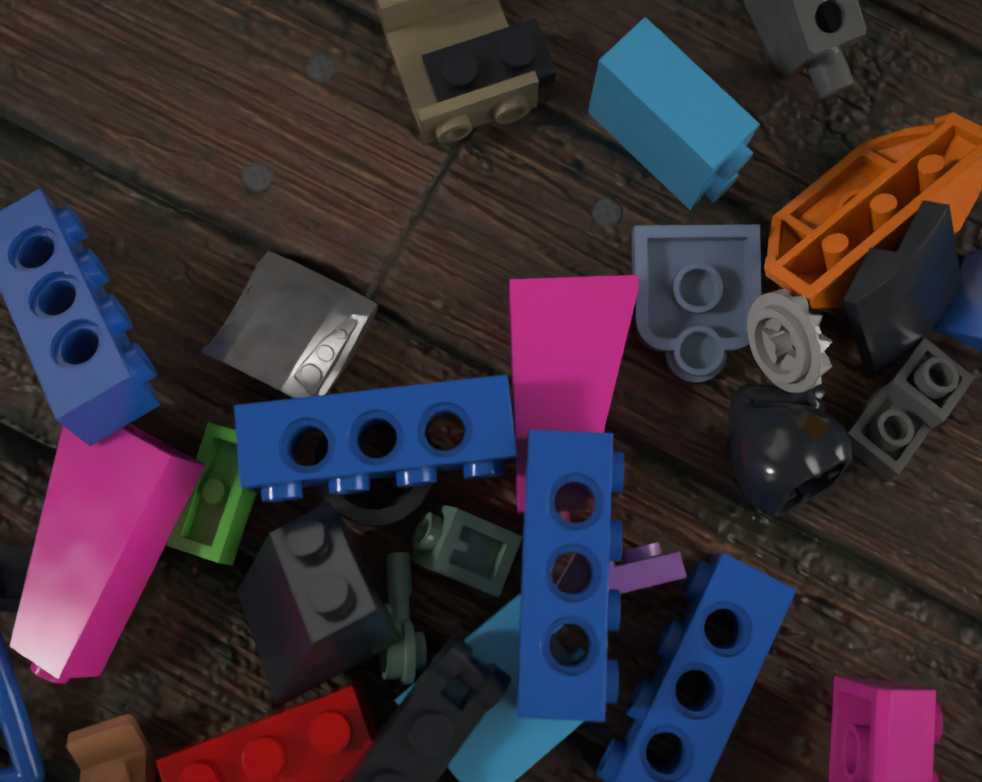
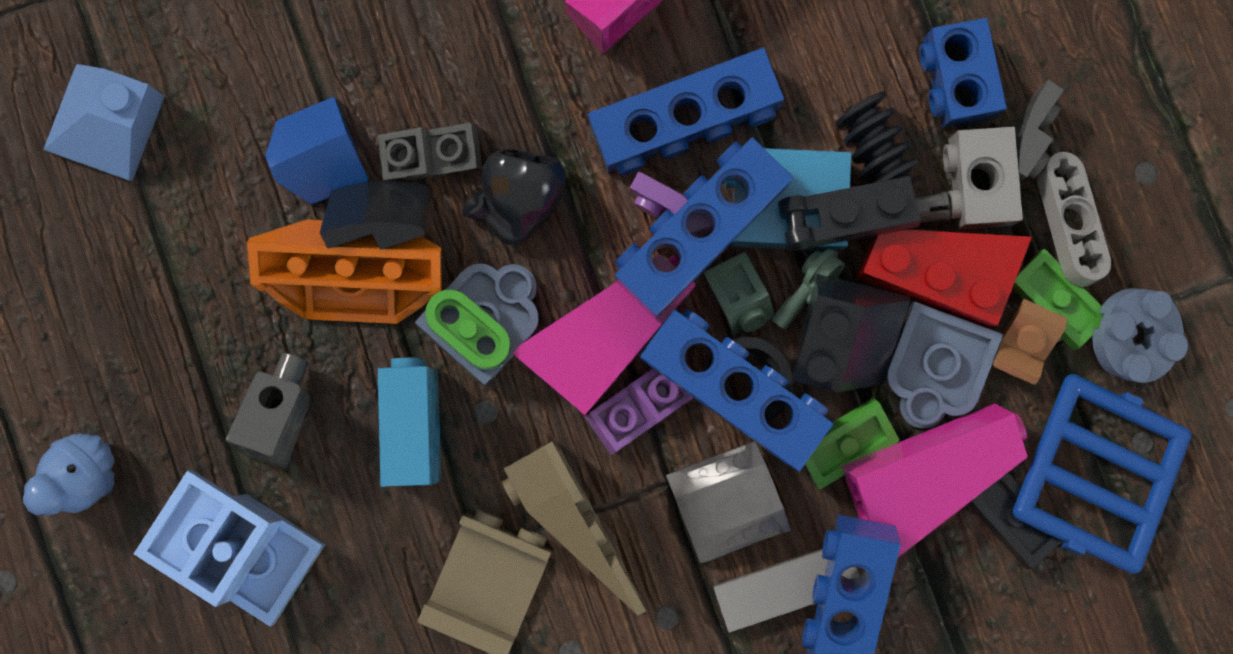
camera: 135 degrees left, 5 degrees up
(175, 285) = (772, 590): none -> light grey tile
(190, 666) = (939, 365): none -> sand blue plate
(447, 179) = (557, 501): none -> dark tan wedge
(465, 331) = (635, 410): none -> medium lavender slope
(489, 61) = (476, 557): black plate -> none
(701, 257) = (468, 330): none -> bright green plate
(772, 346) = (468, 242): light grey gear -> none

